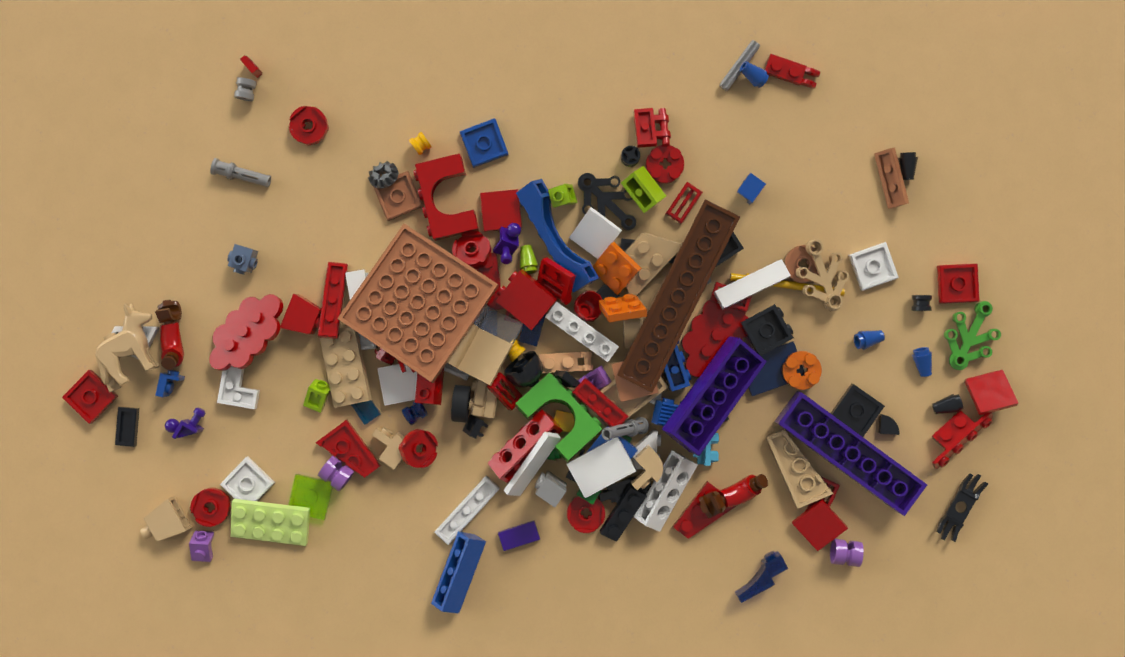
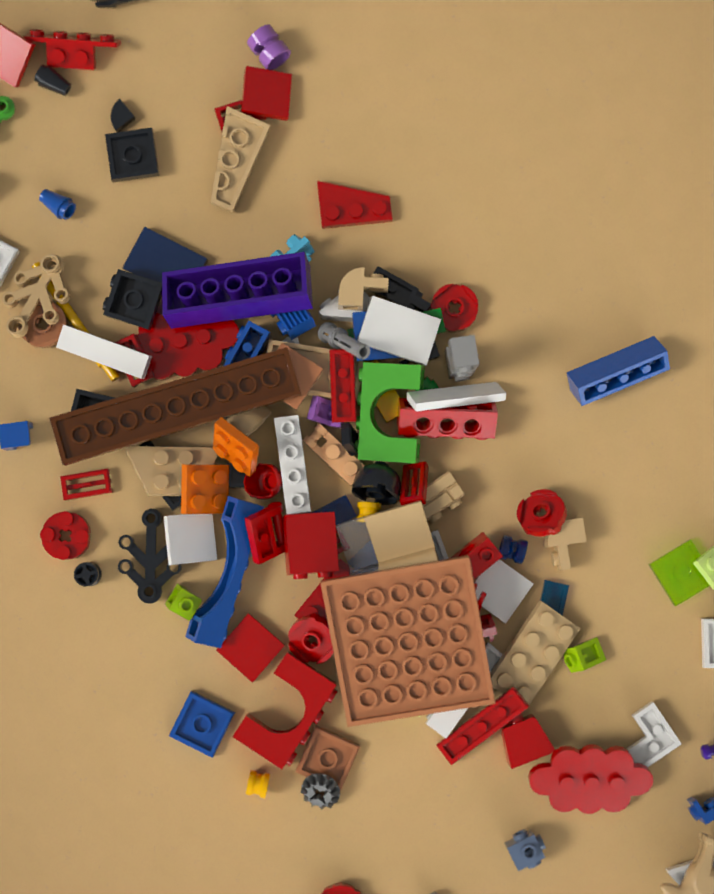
camera: 135 degrees left, 5 degrees down
(170, 336) = (663, 849): piece -> none
(335, 473) = (638, 568): medium lavender wheel -> none
(350, 448) = (603, 580): red wing -> none
(460, 403) = (464, 513): black tyre -> none
(467, 510) = (555, 417): white tile -> none
(473, 426) = (473, 483): black tile -> none
(508, 242) = (273, 611): dark purple piece -> none
(519, 535) = (532, 348): dark purple tile -> none
(528, 260) = (273, 578): lime cone -> none
(623, 513) = (422, 274): black plate -> none
(643, 189) = (107, 532): lime brick -> none
(645, 127) = (47, 585): red plate -> none
(666, 492) = (372, 252): white brick -> none
(736, 494) = (311, 191): piece -> none
(772, 565) = (343, 101): clear blue slope -> none
(810, 377) = (140, 222): orange plate -> none
(850, 453) = (176, 125): dark purple brick -> none
(923, 361) = (32, 138): blue cone -> none

